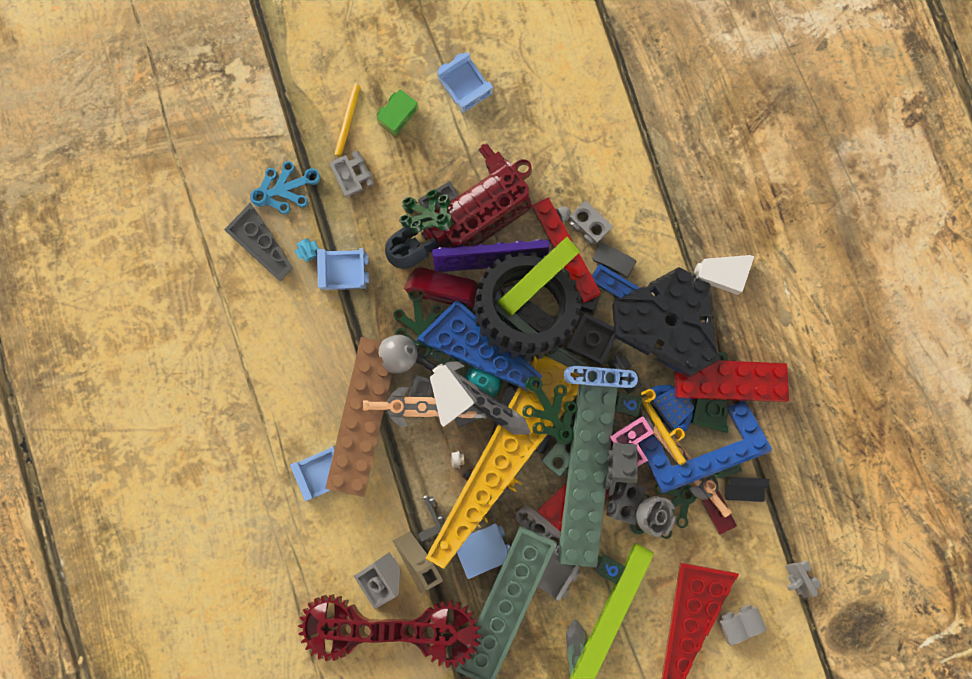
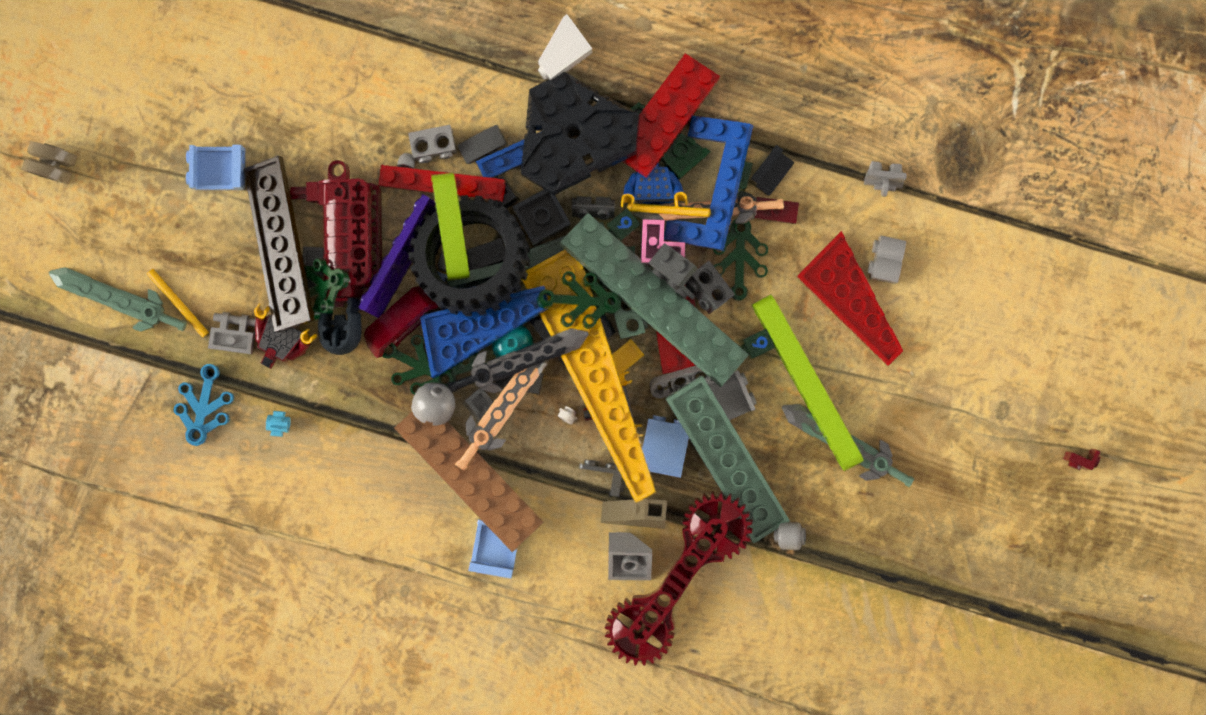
camera: 55 degrees left, 5 degrees up
(255, 238) = (234, 464): dark grey wing -> none
(322, 81) = (149, 312): none -> sand green sword
(342, 269) = (319, 402): light blue panel -> none
(370, 209) = (283, 345): none -> torso
(397, 112) = (202, 251): bright green brick -> none
(438, 162) = (278, 244): none -> plate
(450, 394) = (503, 381): white slope -> none
(532, 474) = (626, 356): none -> yellow tile
(600, 377) = (581, 233): light blue beam -> none
(655, 516) = (739, 270): light grey cylinder -> none

